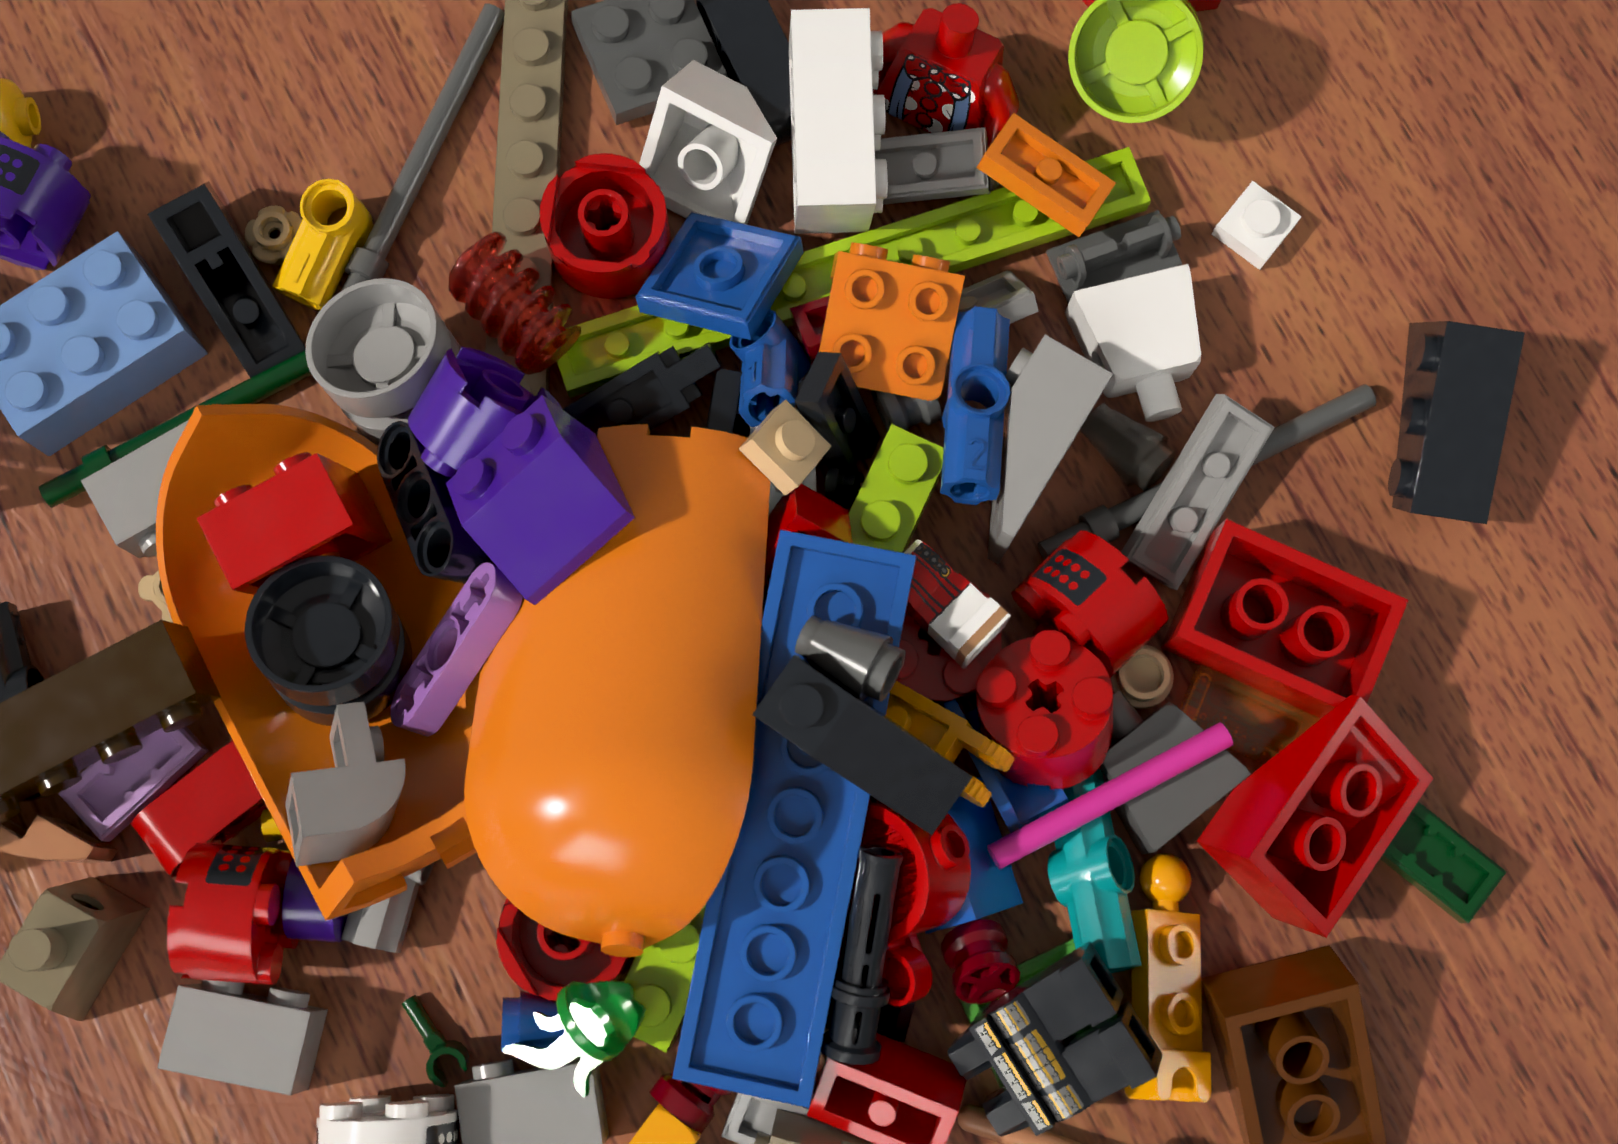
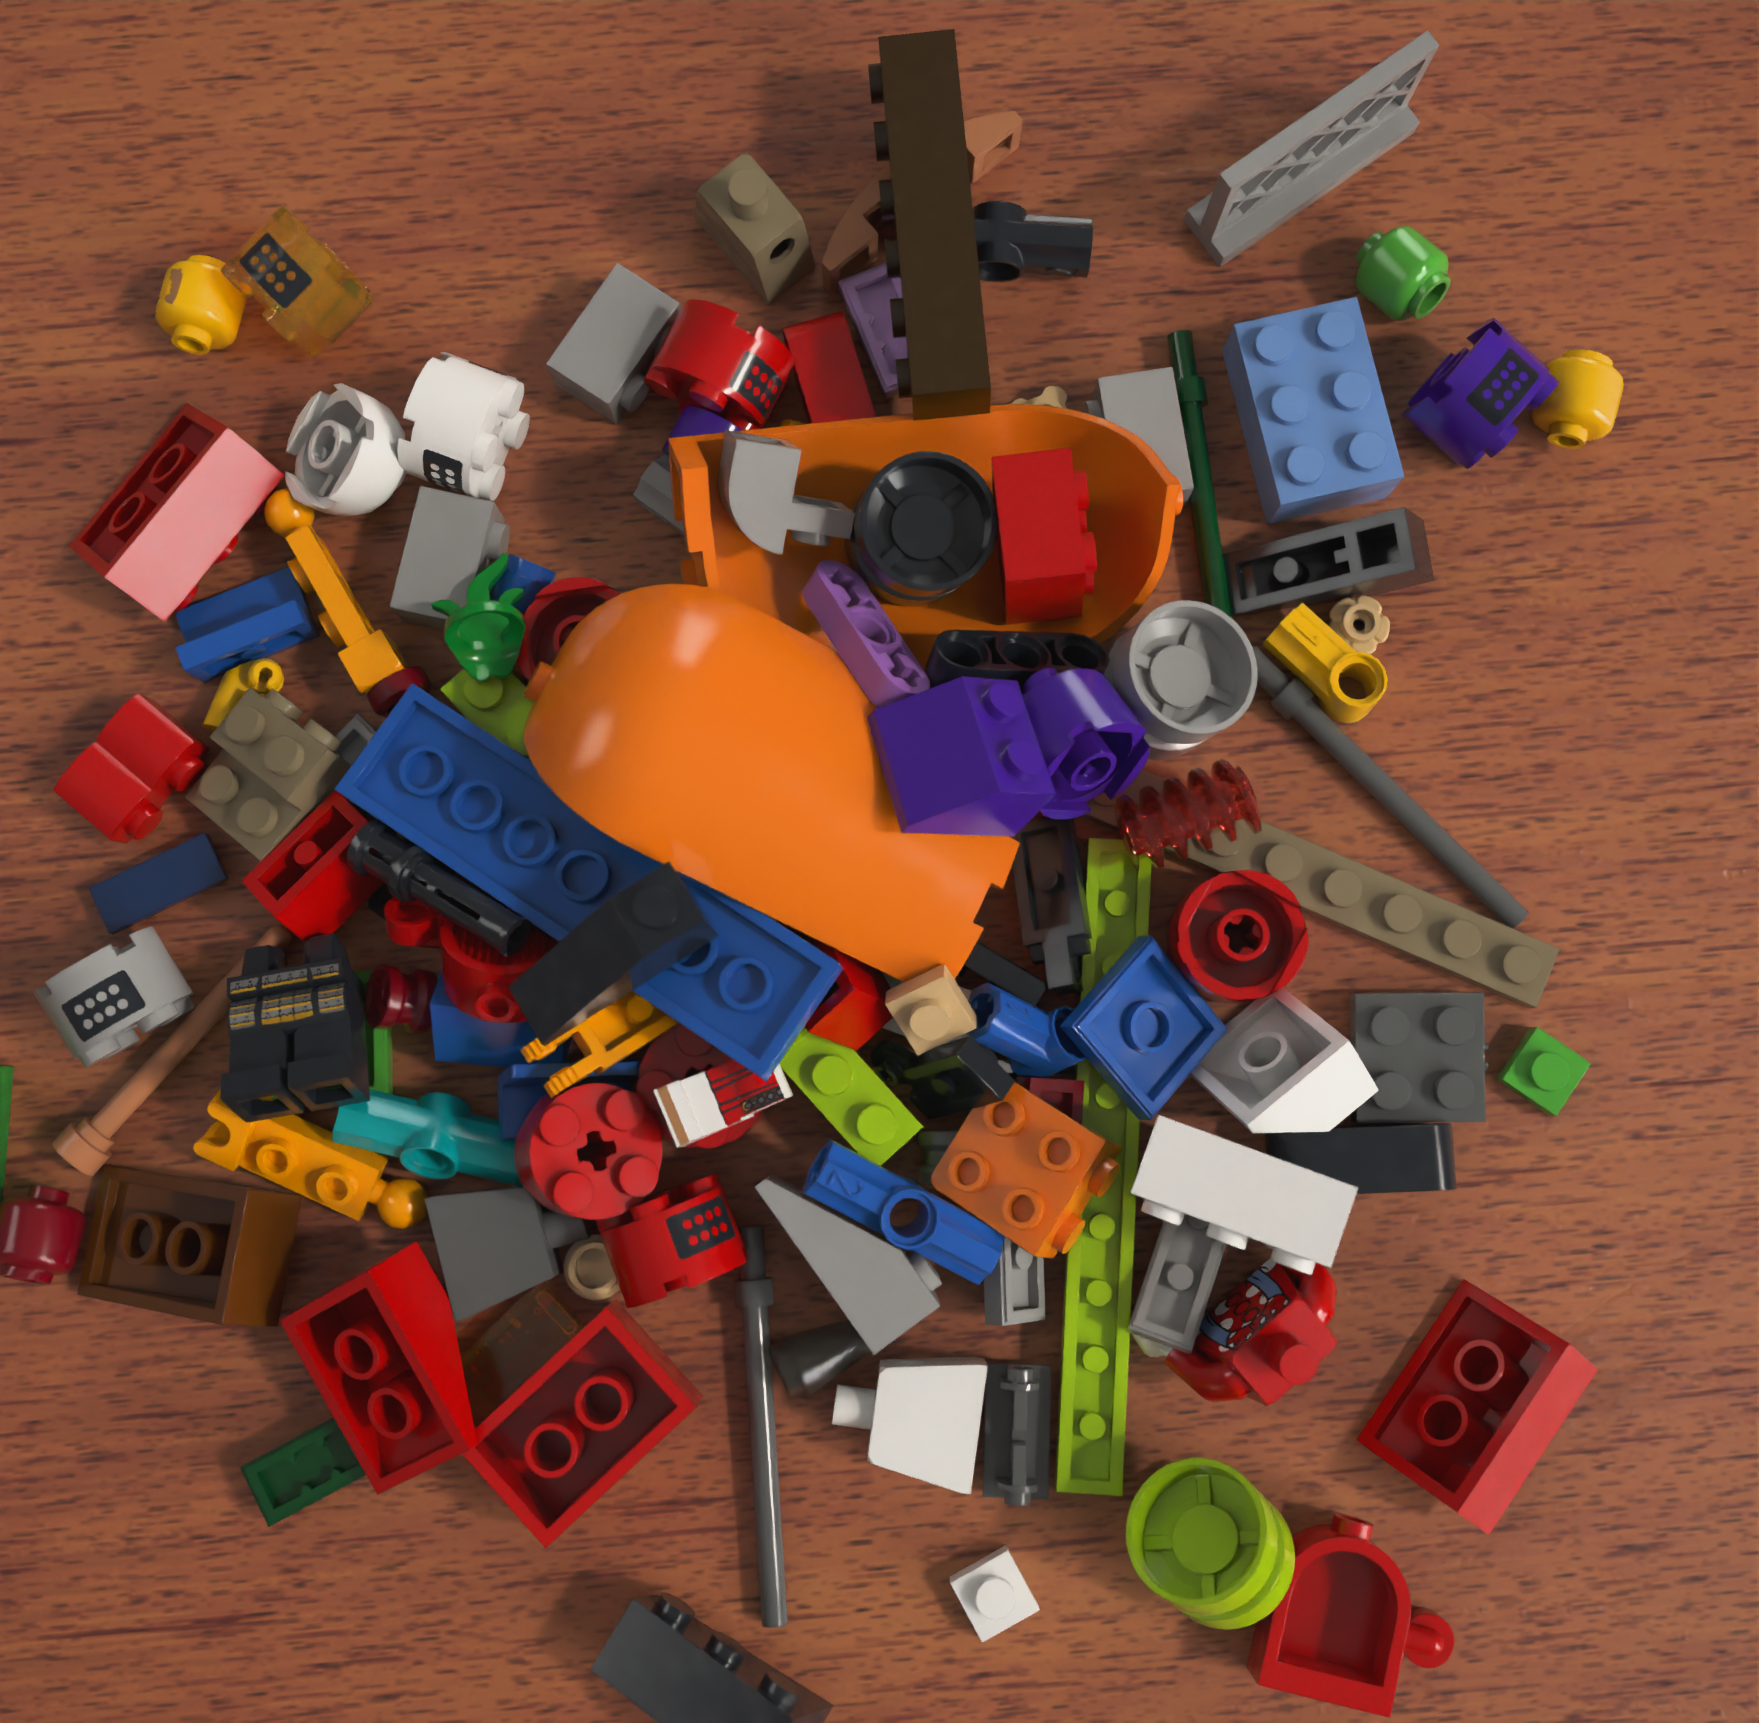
camera: 115 degrees right, 5 degrees up
(434, 1041) = (543, 504): dark green hand -> none
(852, 656) = (691, 978): dark grey cone -> none
(1046, 175) = (1116, 1391): orange plate -> none
(1110, 795) = (490, 1180): dark pink bar -> none
(1197, 491) = (745, 1400): light grey tile -> none

